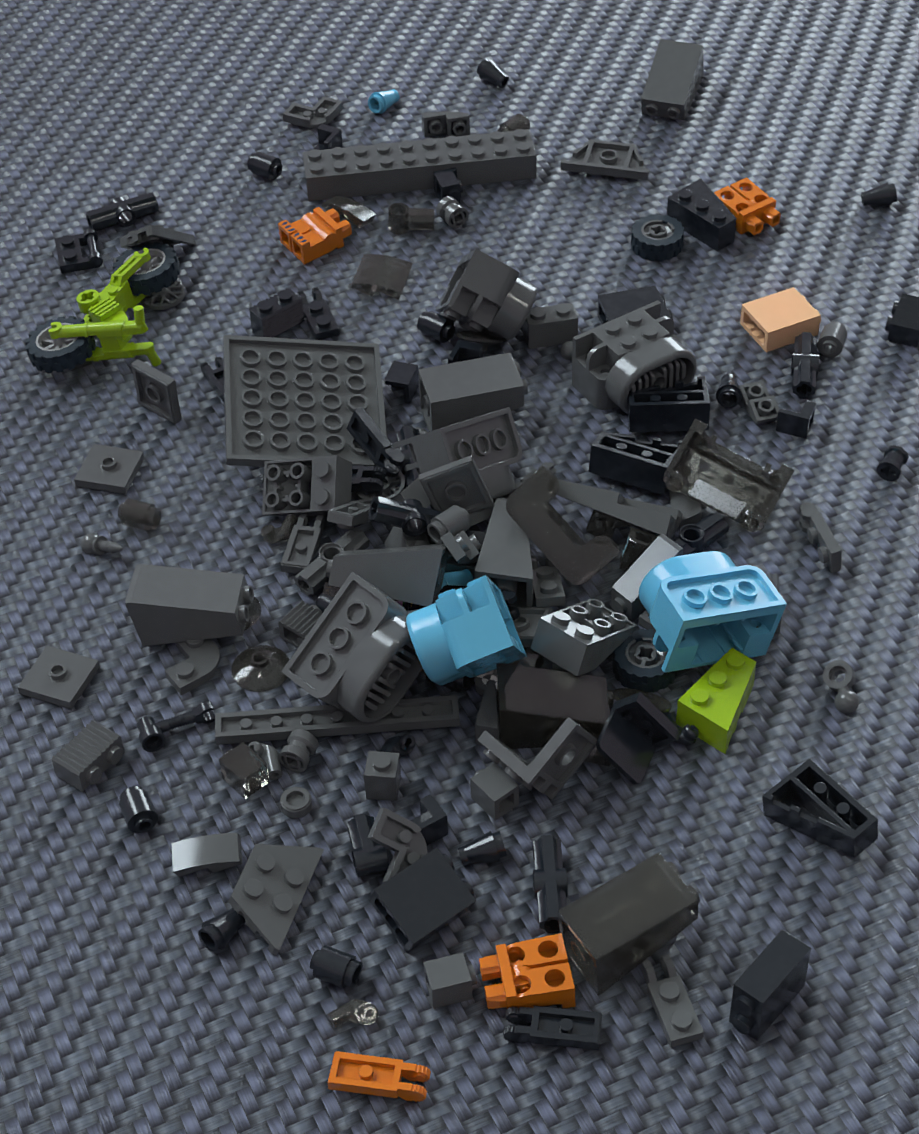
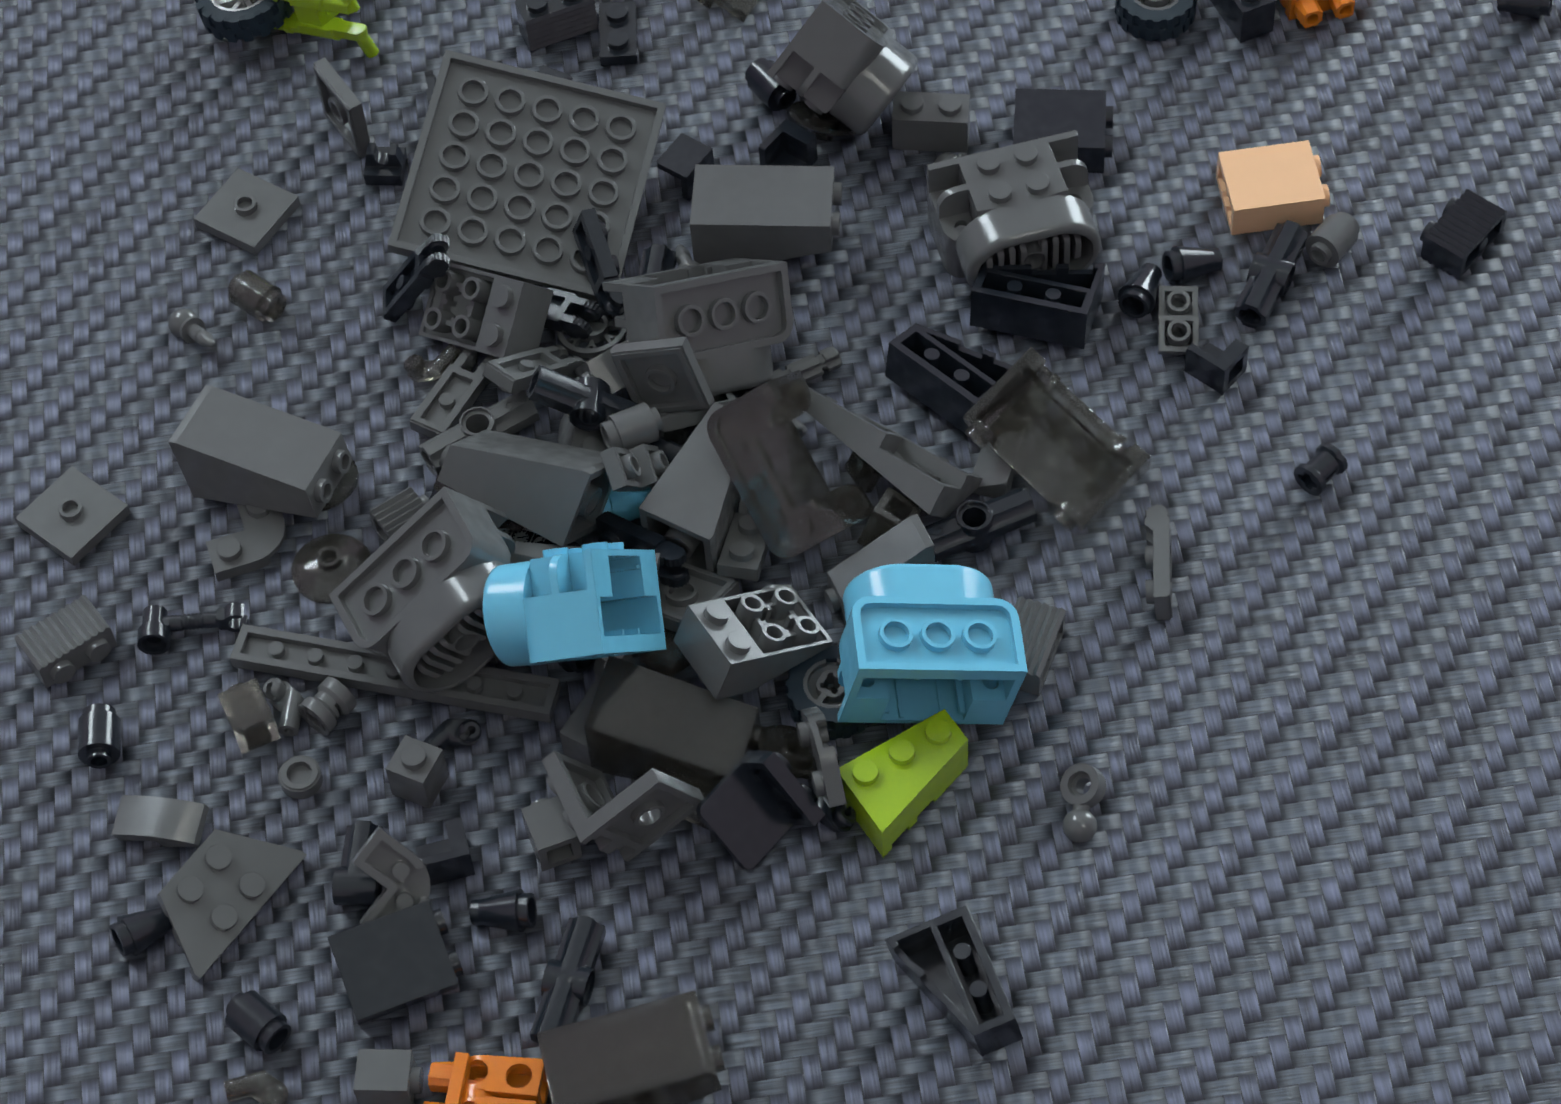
camera: 20 degrees right, 10 degrees up
(195, 422) = (385, 165): none -> black tile
(251, 475) = (415, 276): none -> black hinge
(657, 684) = (827, 778): none -> dark grey plate
(751, 369) = (1188, 263): none -> black cone

